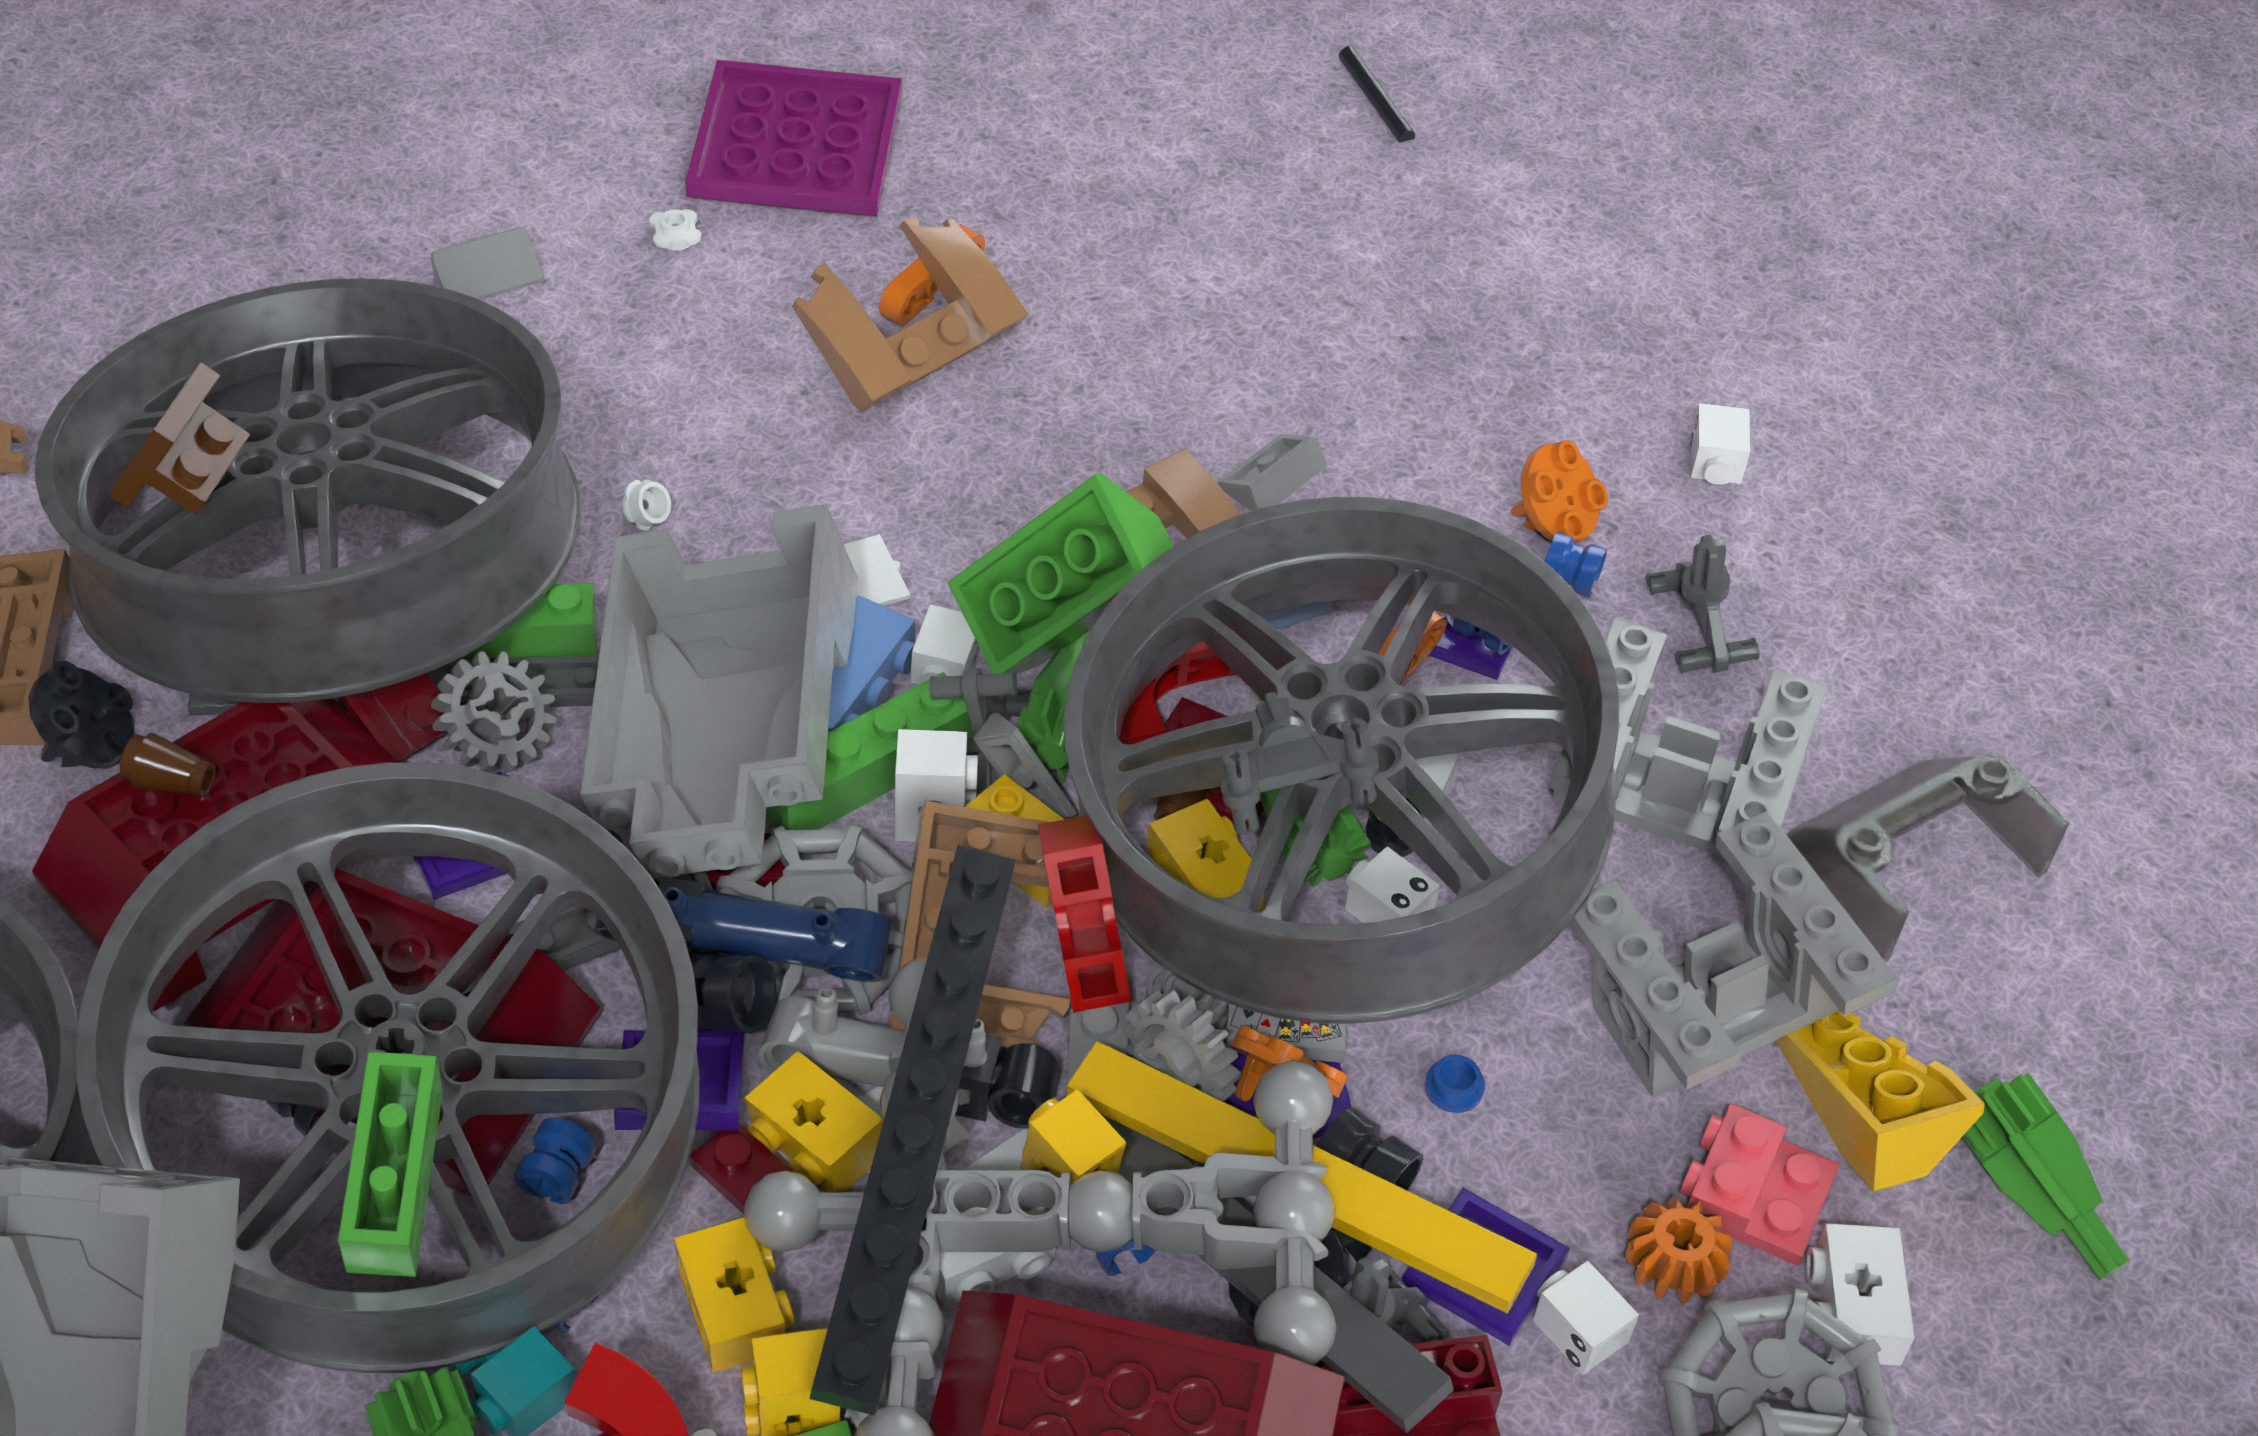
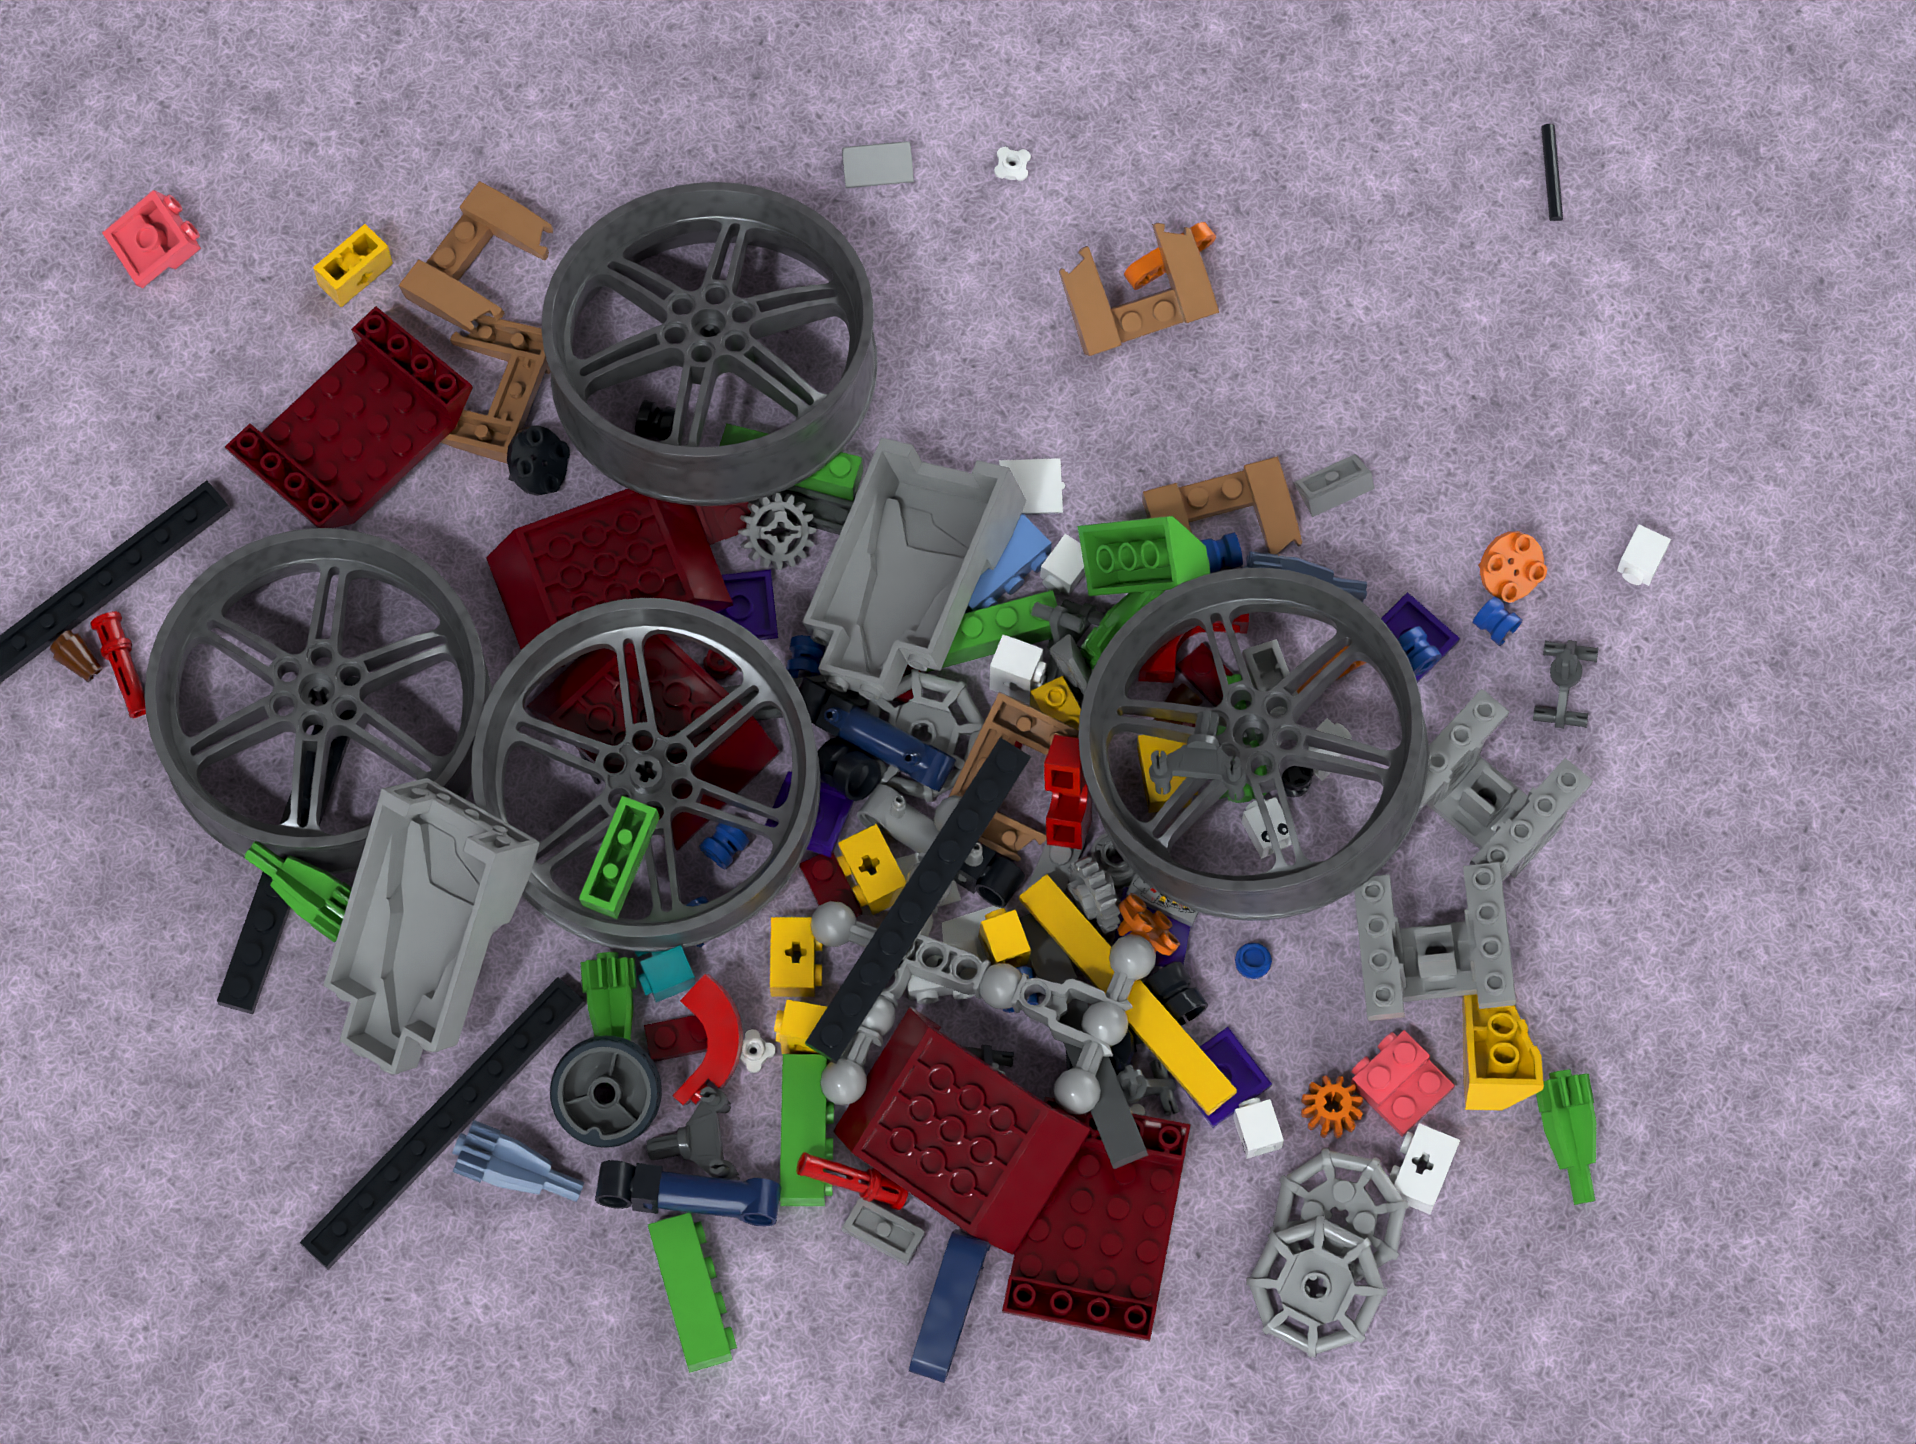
camera: 25 degrees right, 20 degrees up
(165, 767) = (572, 528): reddish brown cone -> none
(185, 449) = (630, 328): bracket -> none
(464, 898) = (718, 671): none -> dark red plate
(646, 503) = (925, 397): white plate -> none
(795, 138) = (1121, 103): magenta plate -> none
(1857, 835) = (1560, 877): clear smoke windscreen -> none

